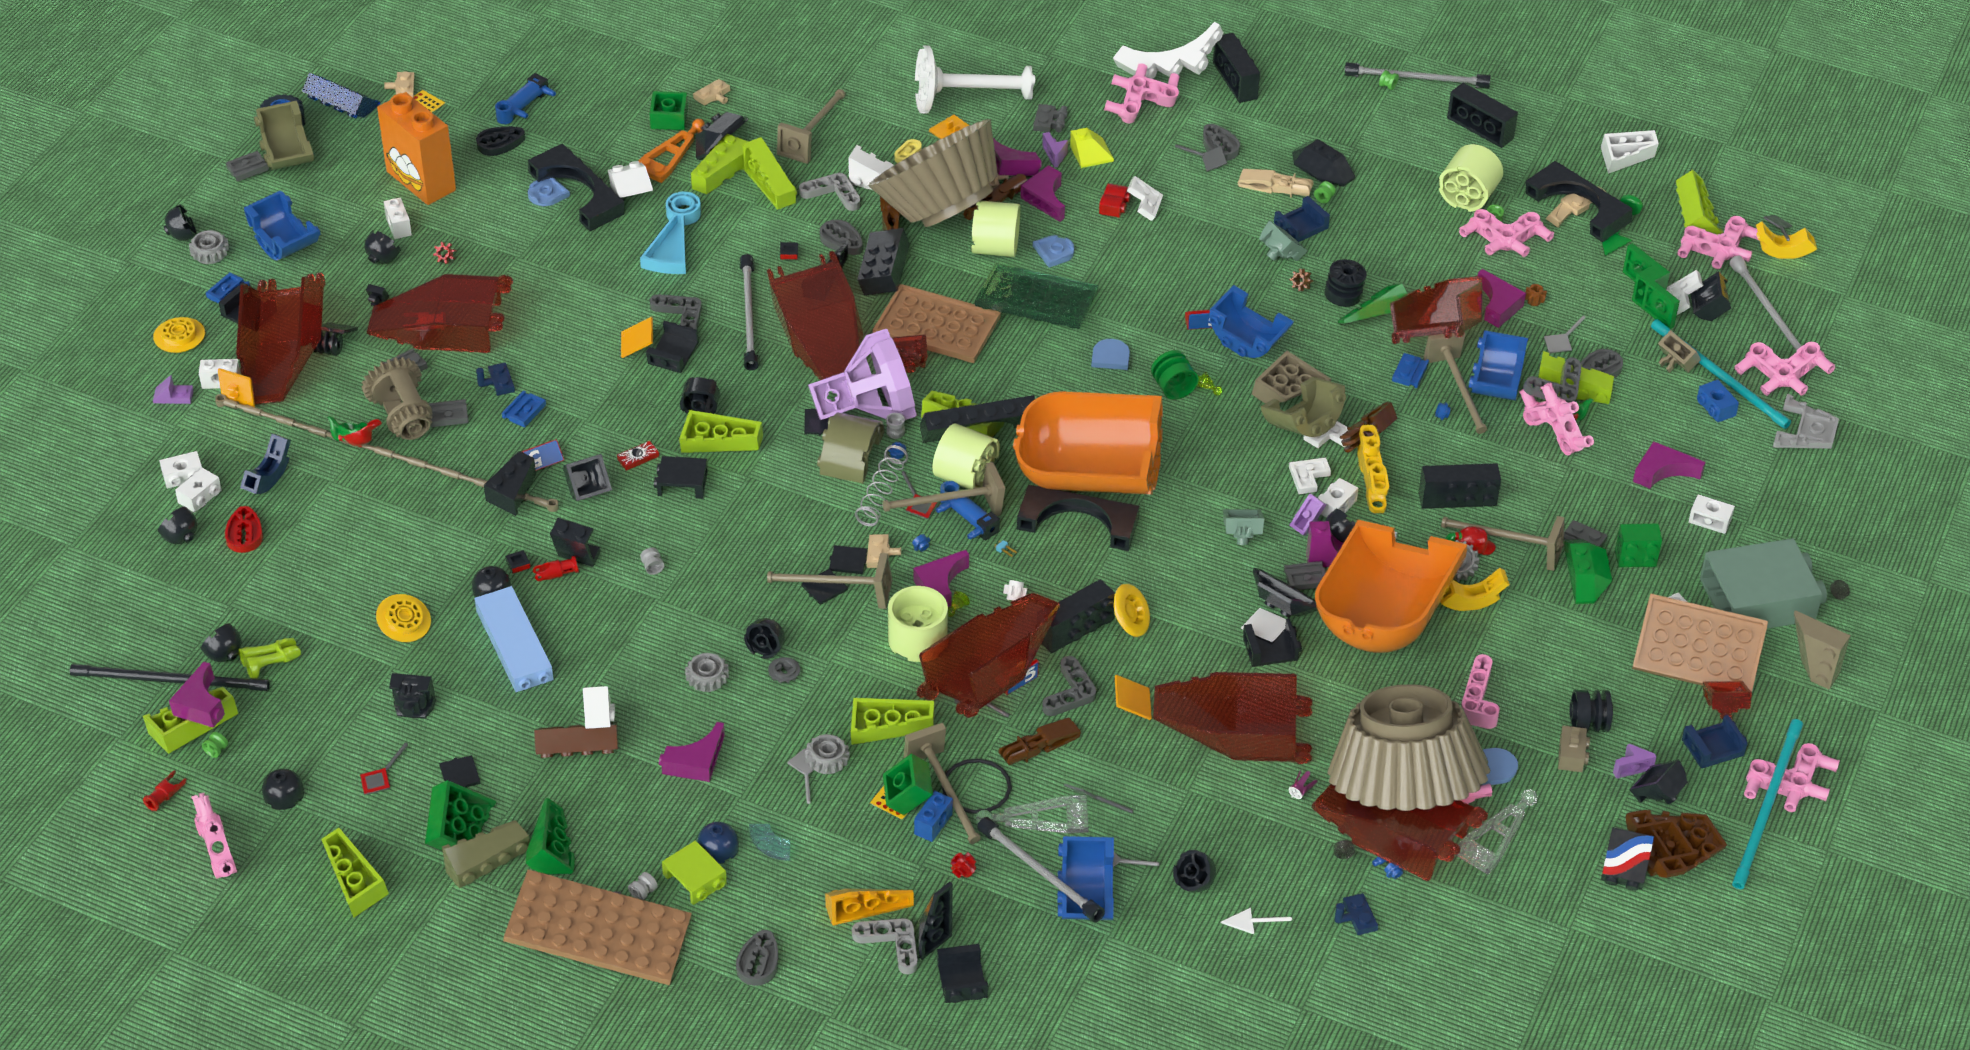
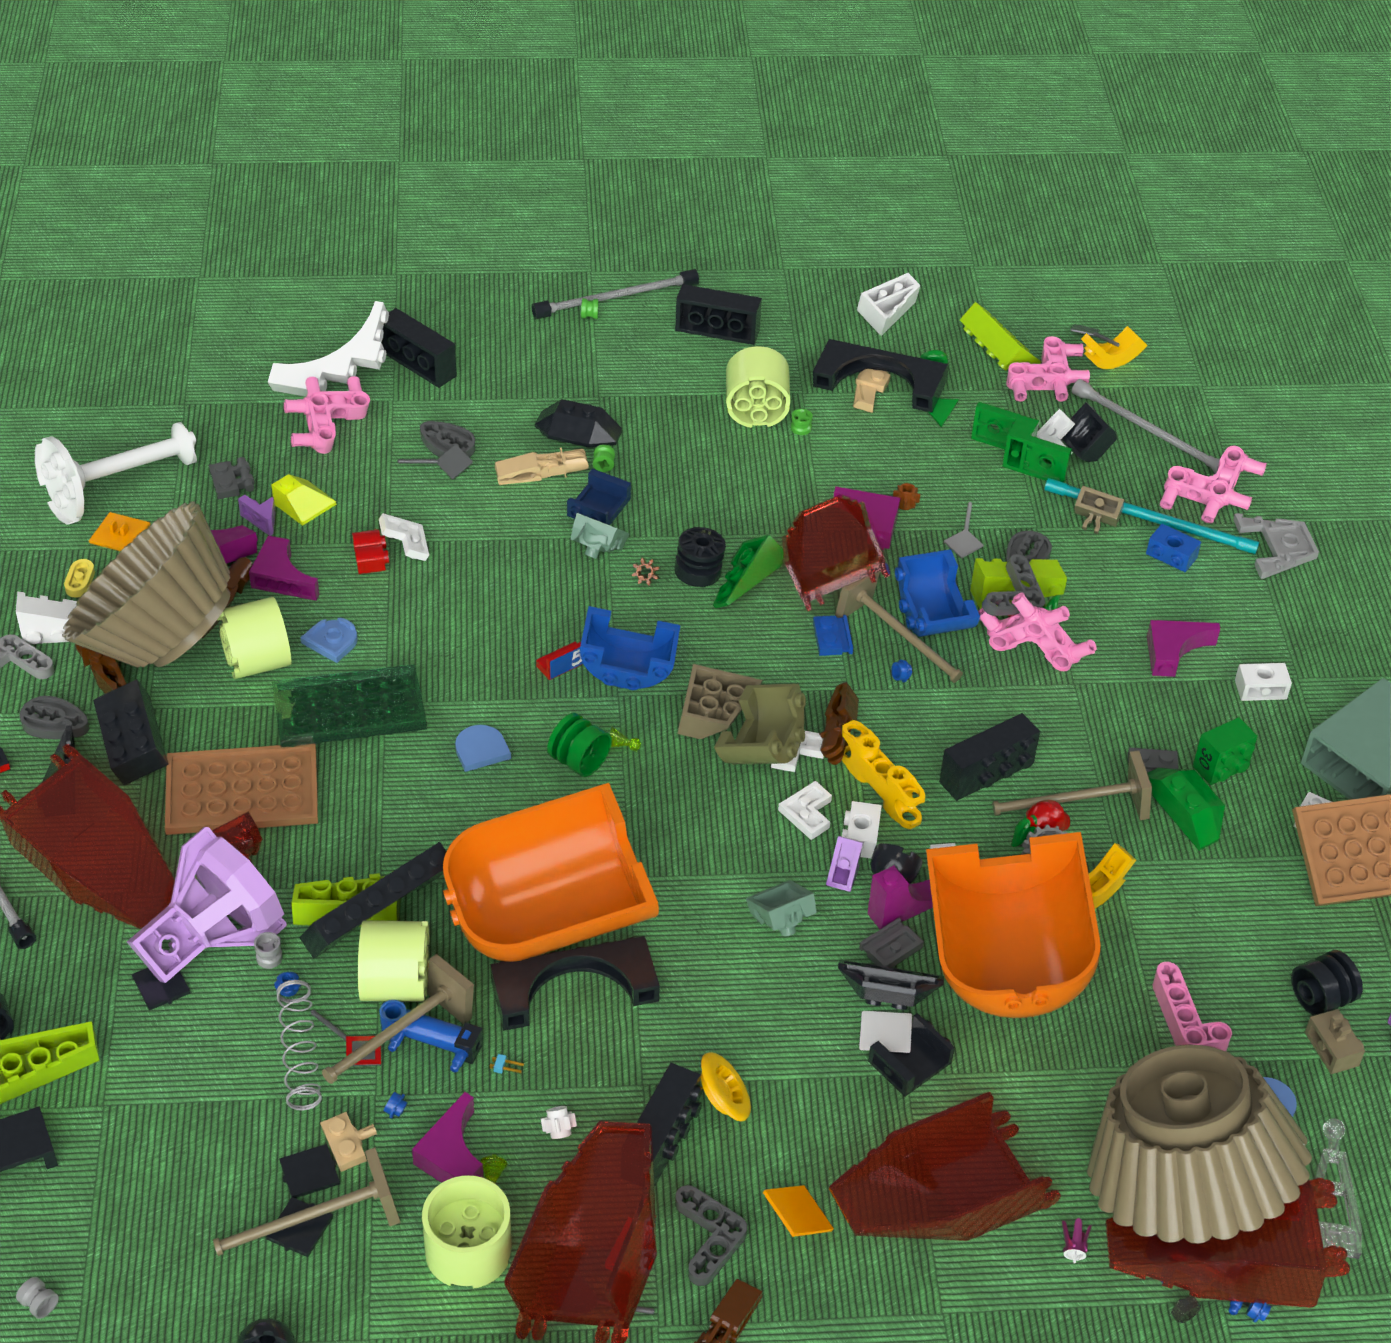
camera: 30 degrees left, 0 degrees up
(848, 446) = (225, 1007): olive cylinder -> none
(1506, 236) = (829, 440): bright pink pin -> none

